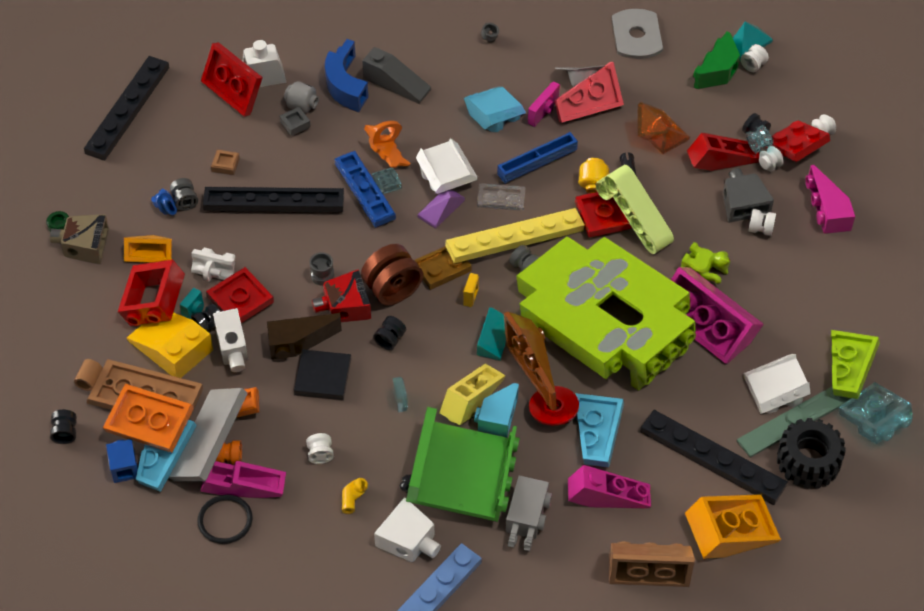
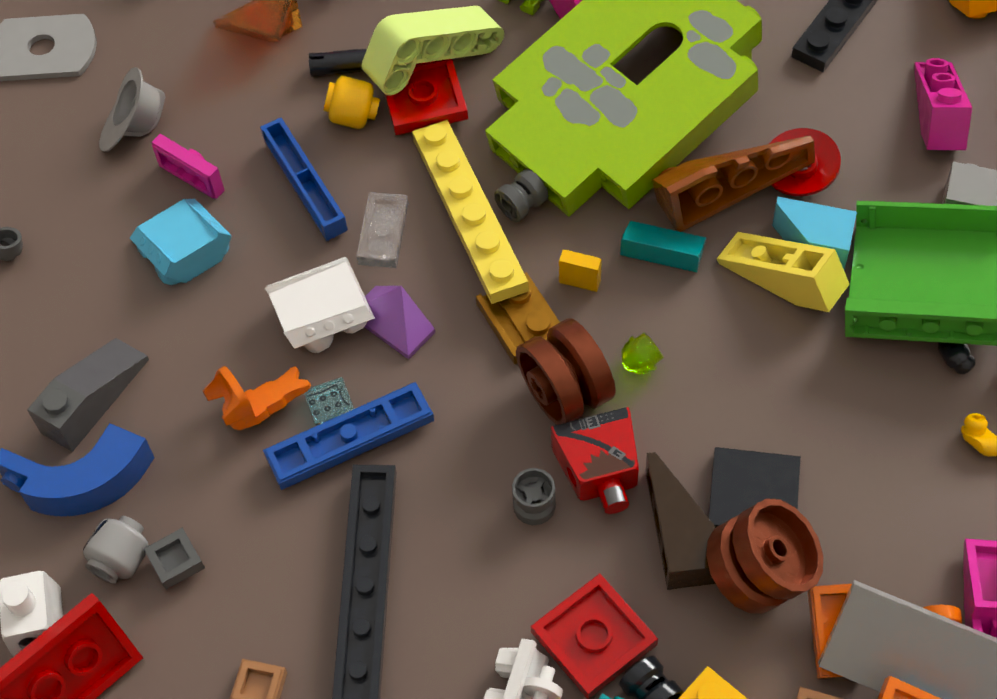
camera: 85 degrees left, 5 degrees up
(231, 339) = (706, 635): white torso -> none
(267, 376) = (764, 556): none -> copper wheel
(319, 448) = (914, 486): white wheel -> none
(391, 330) = (667, 385): black wheel -> none
(400, 394) = (795, 369): clear light blue tile -> none
(414, 320) = (641, 354): none -> clear neon green plate
(591, 96) = (184, 98): coral wing -> none
(598, 427) = (835, 110): medium azure wing -> none

